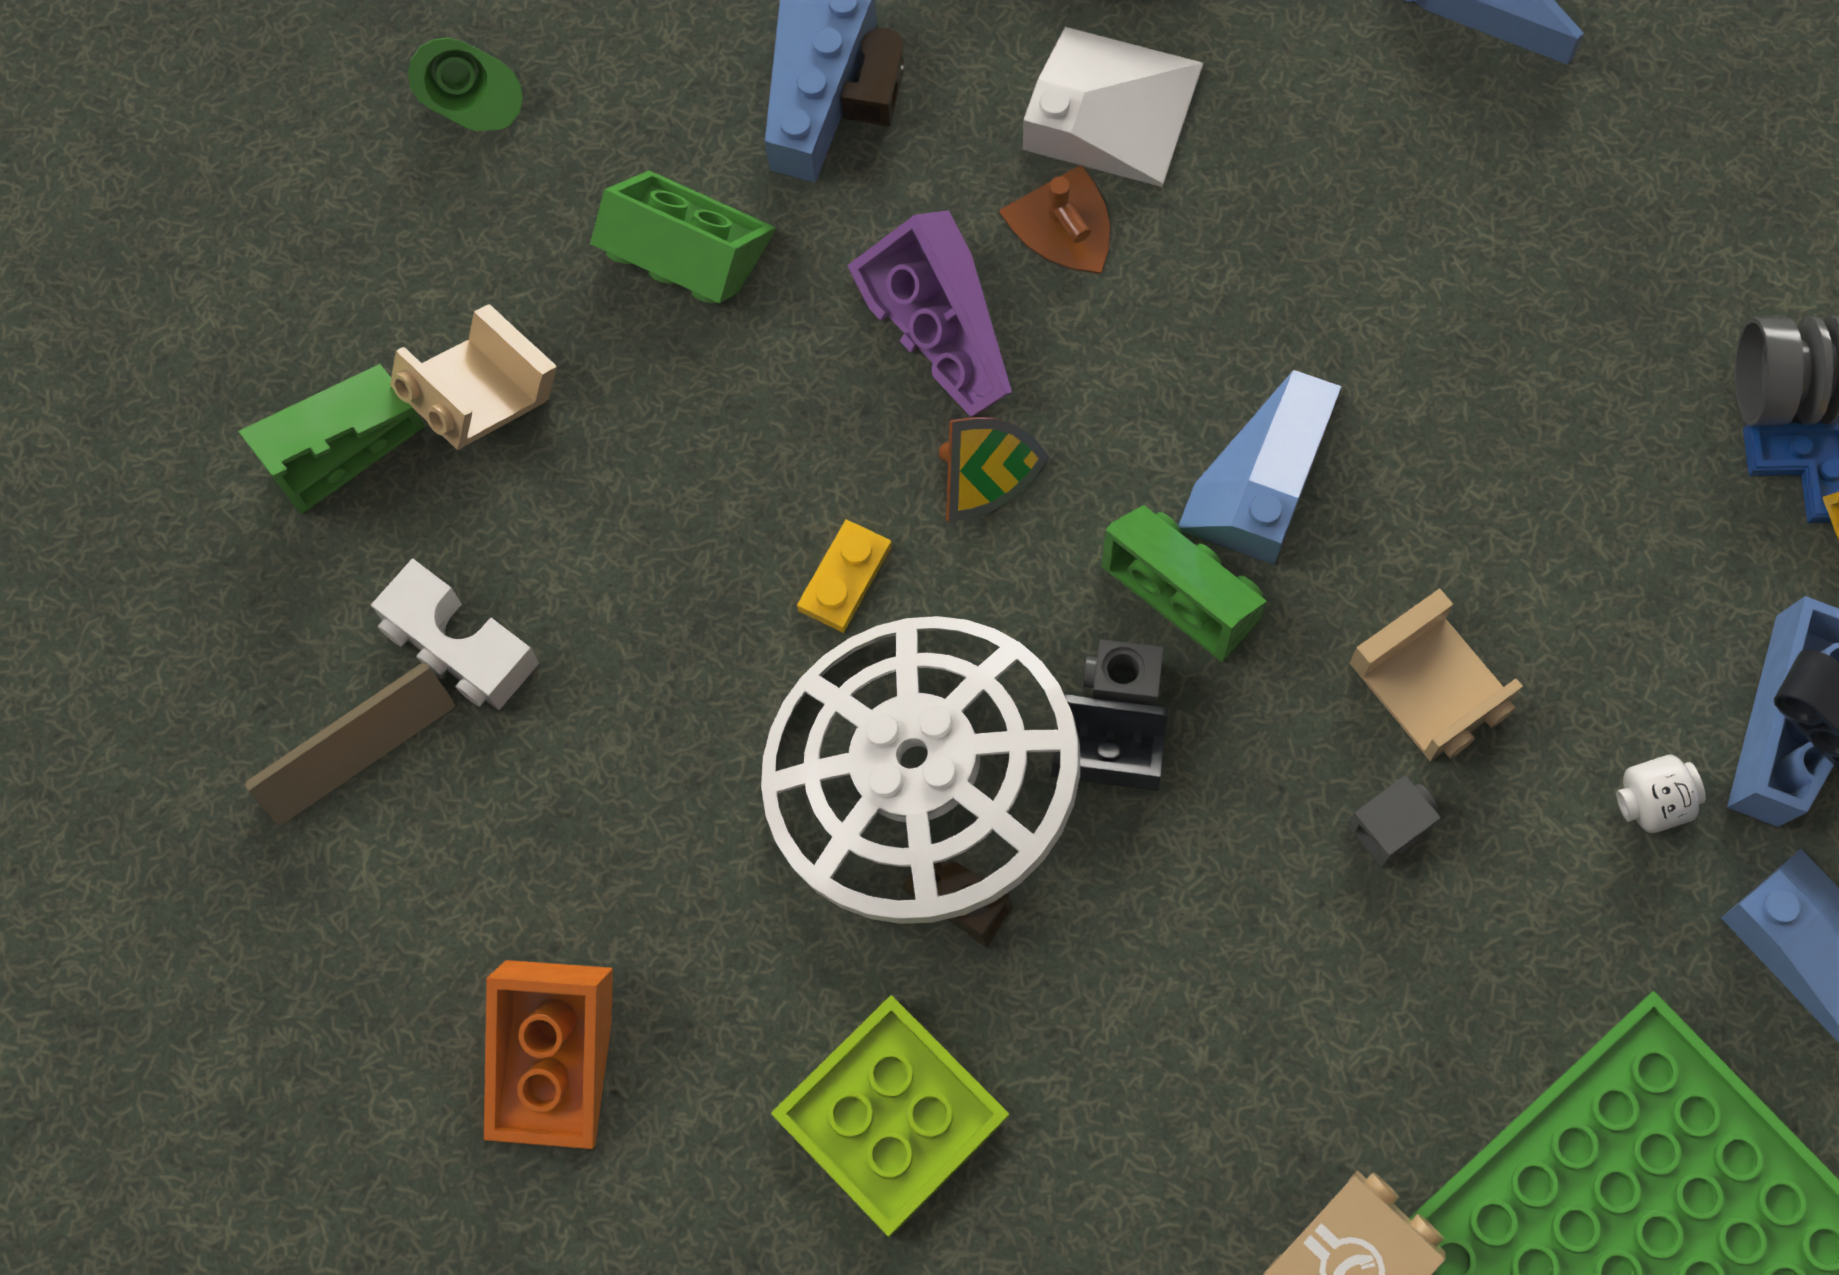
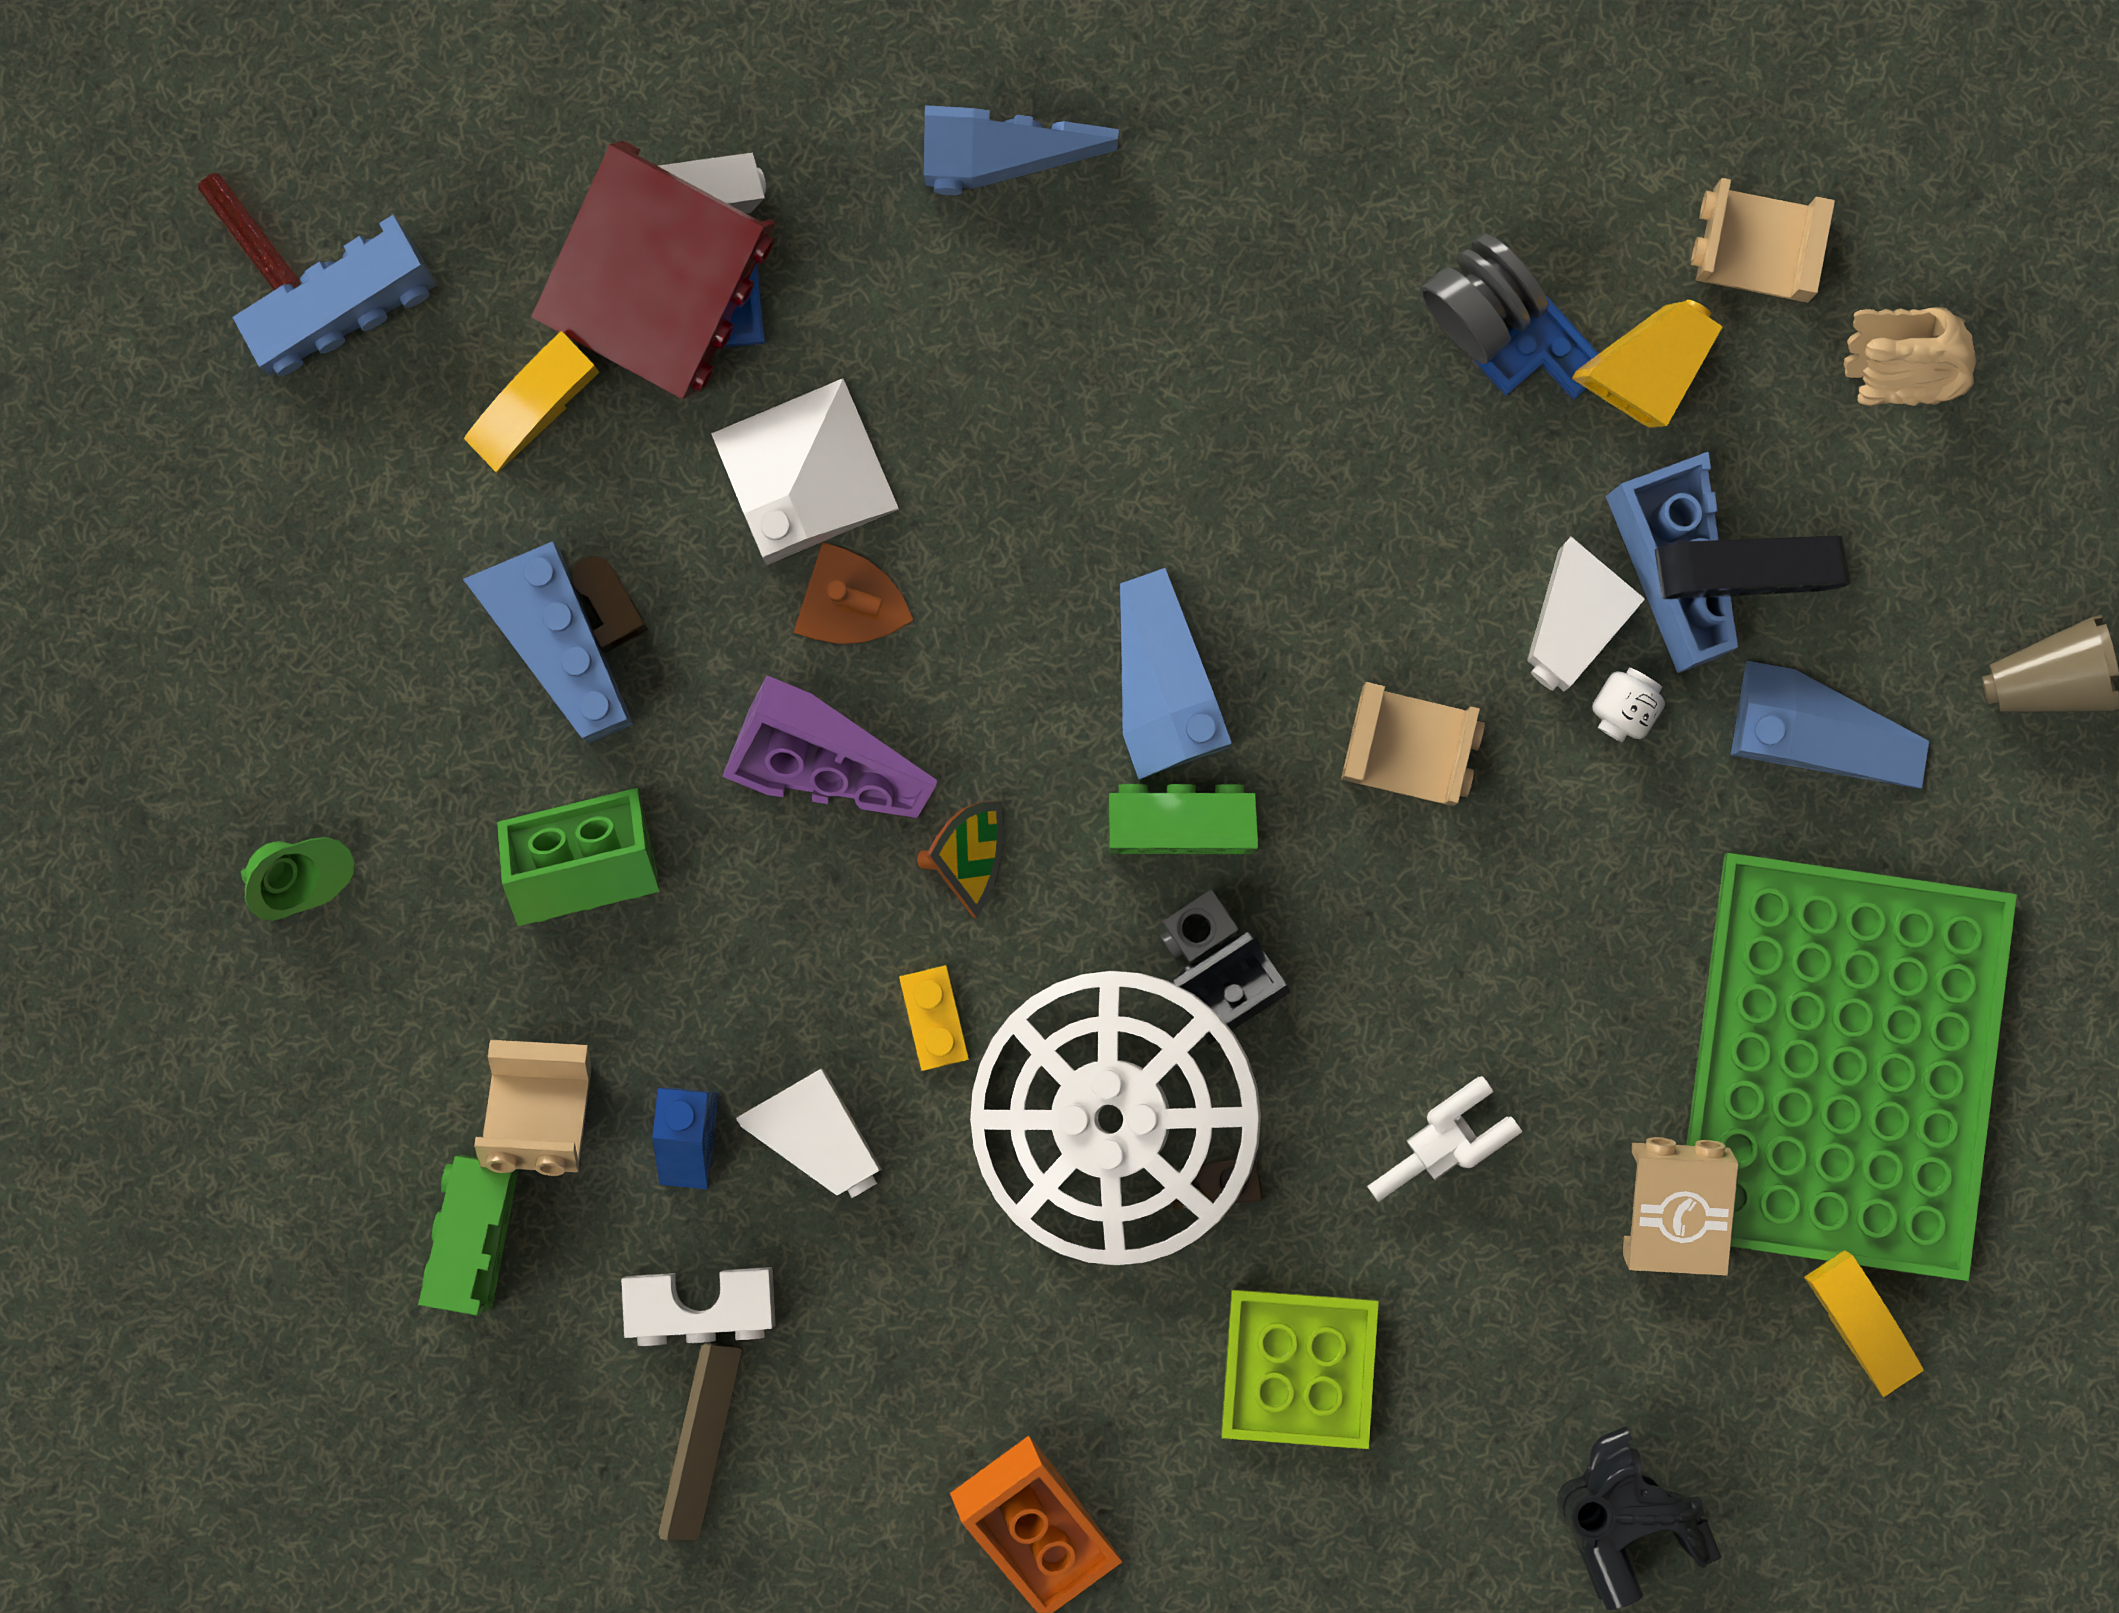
camera: 45 degrees left, 15 degrees up
(565, 488) = (684, 1136): none -> blue slope
(668, 580) = (815, 1134): none -> white slope
(1193, 1027) = (1448, 1141): none -> white plant
(1395, 820) = (1466, 875): dark grey brick -> none
(1675, 689) = (1578, 616): none -> white slope

